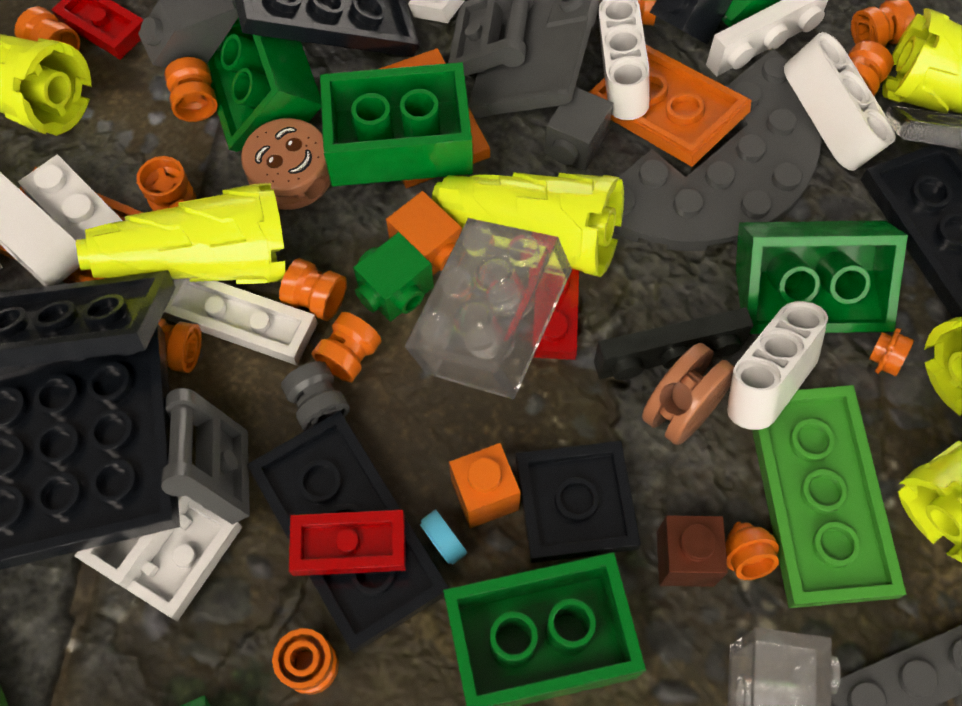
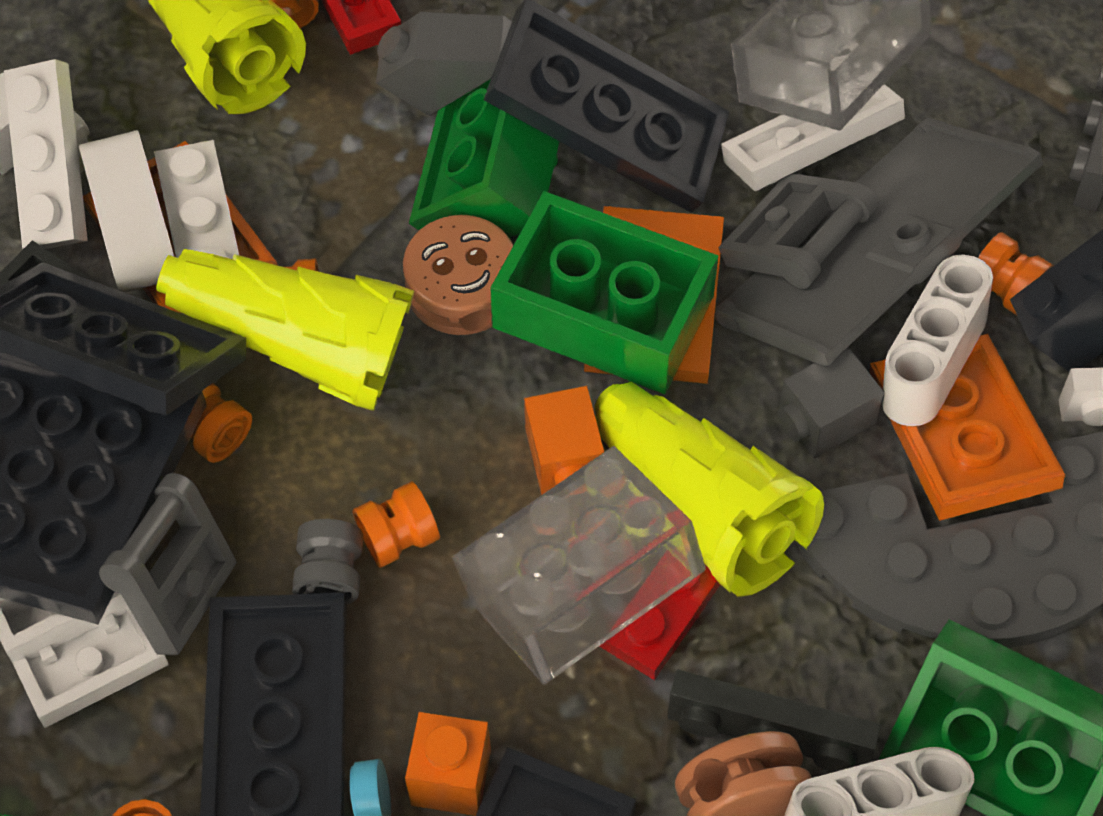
camera: 30 degrees right, 5 degrees down
(164, 182) = (309, 231): orange wheel -> none
(190, 88) = (405, 127): orange wheel -> none
(242, 318) = (304, 431): white plate -> none
(311, 289) = (399, 438): orange wheel -> none
(347, 543) = (260, 740): red plate -> none
(393, 277) = (495, 471): green brick -> none

